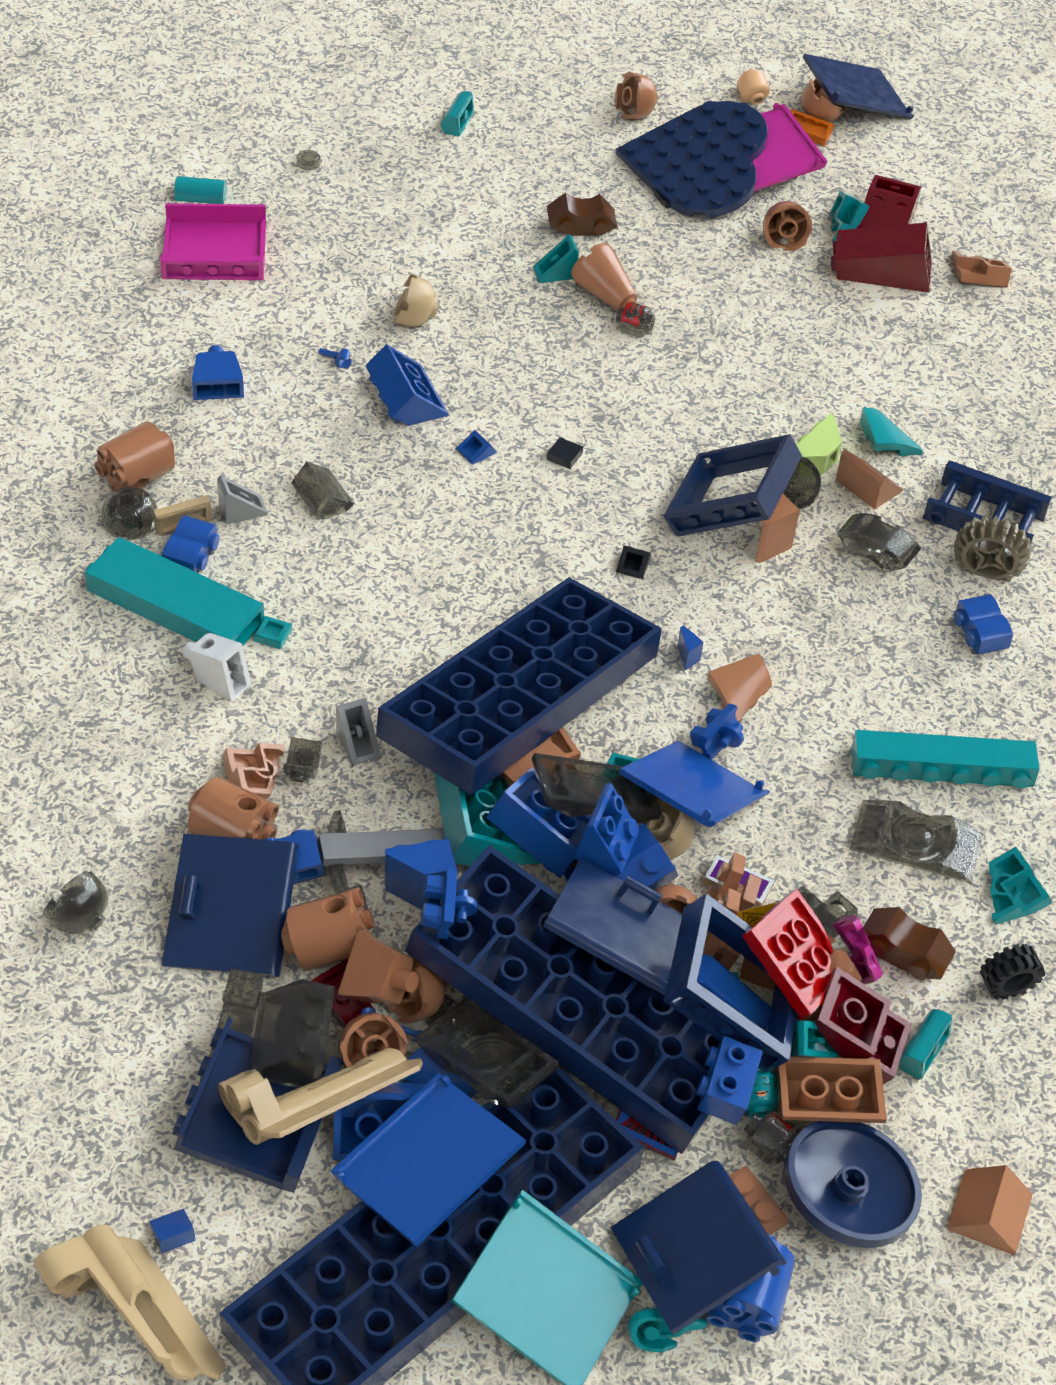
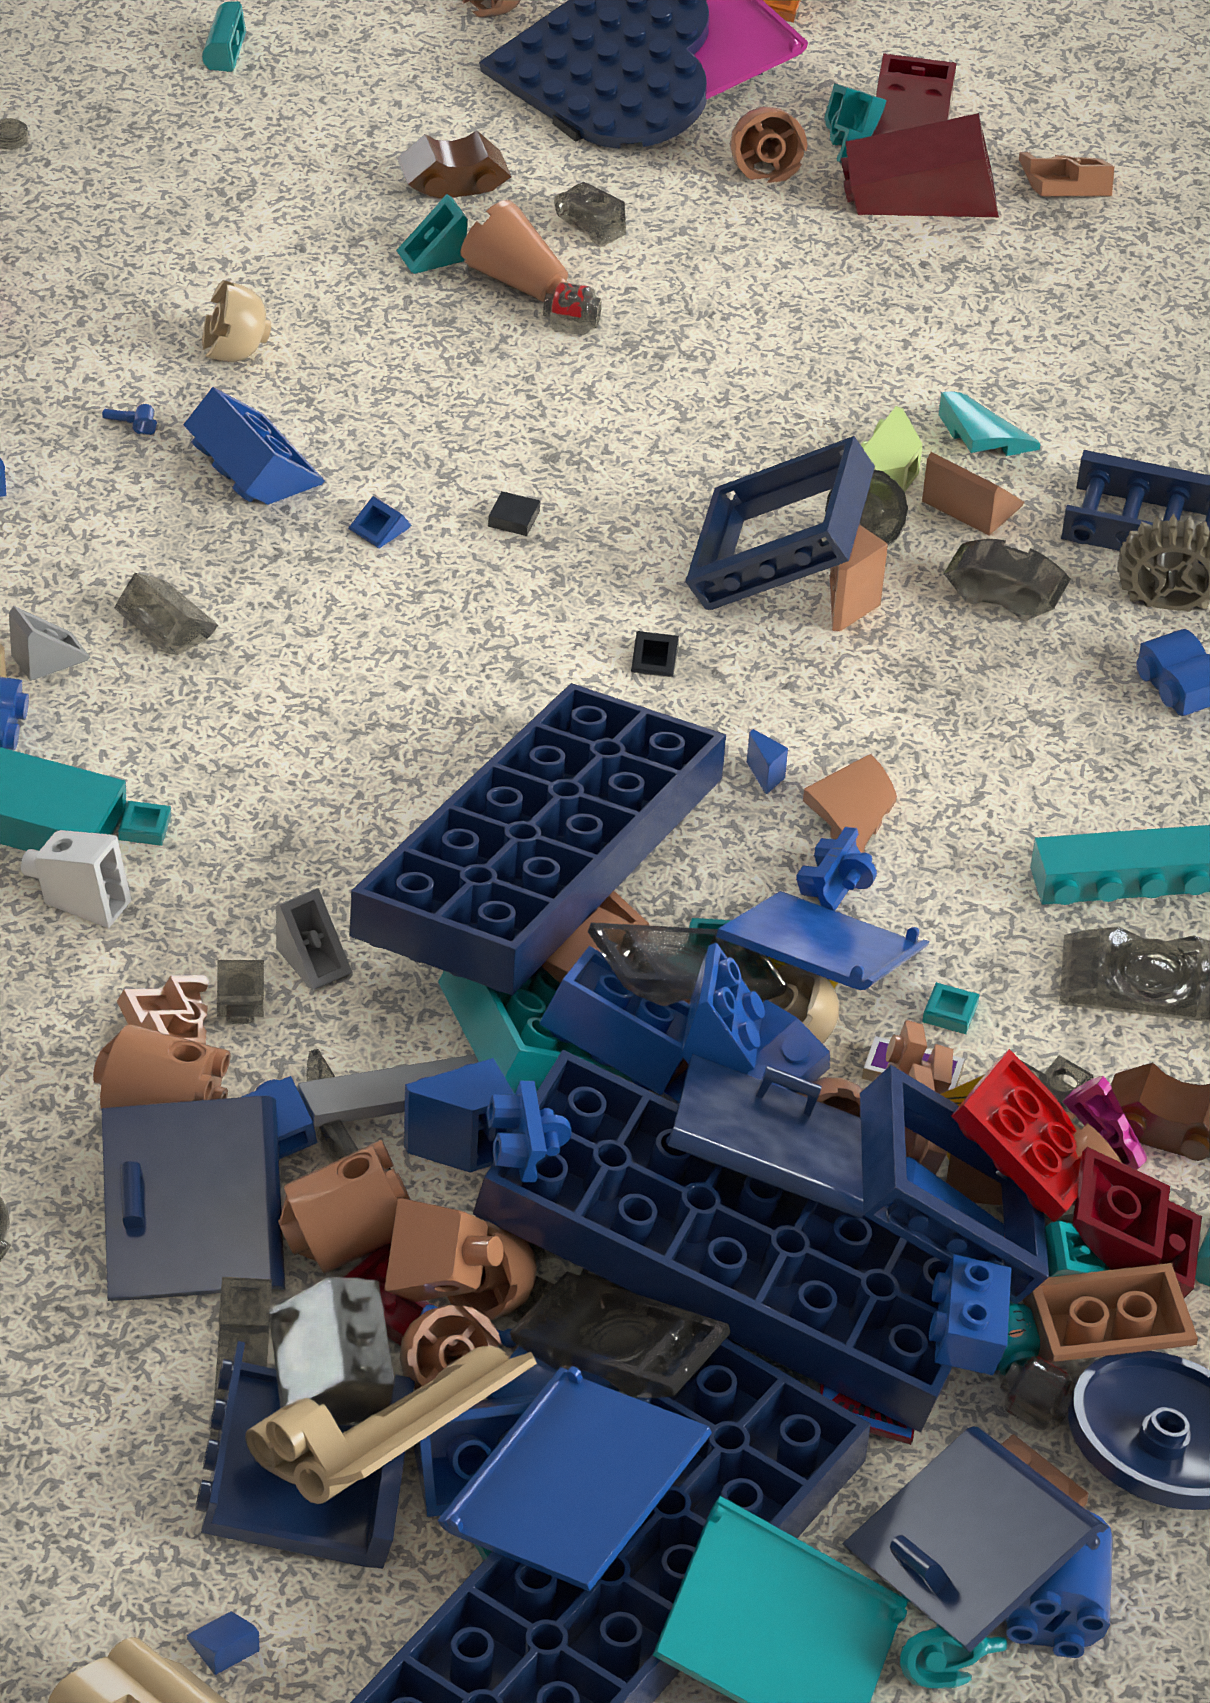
camera: 10 degrees left, 5 degrees down
(664, 257) = (593, 212): none -> clear smoke leg
(774, 841) = (951, 1008): none -> teal tile

